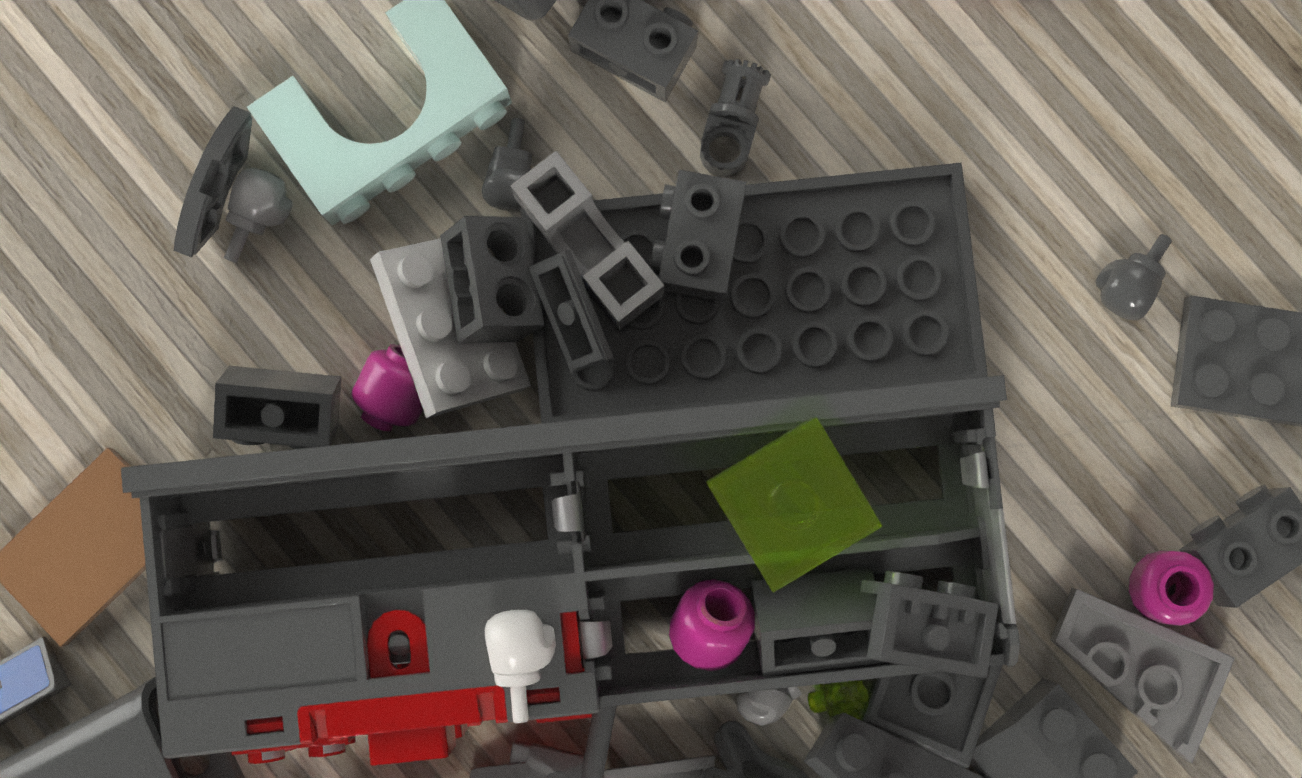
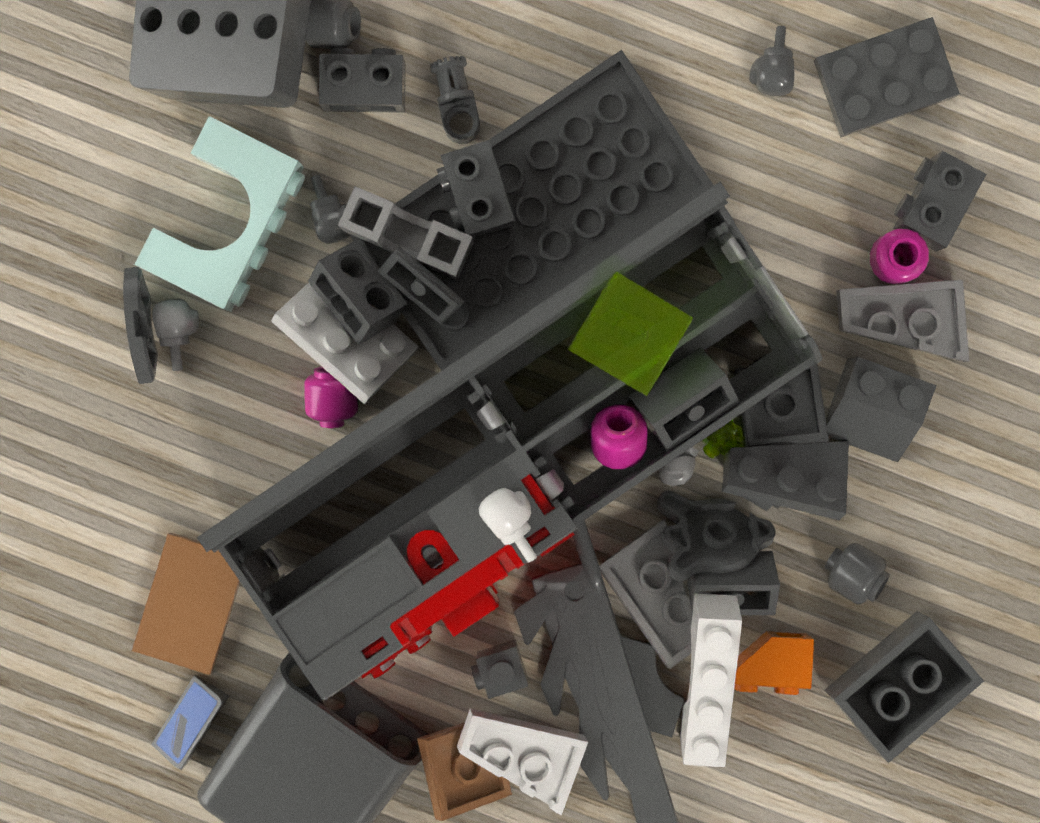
camera: 25 degrees left, 5 degrees up
(276, 407) = (264, 449): dark grey brick -> none
(930, 628) = (756, 365): dark grey bracket -> none

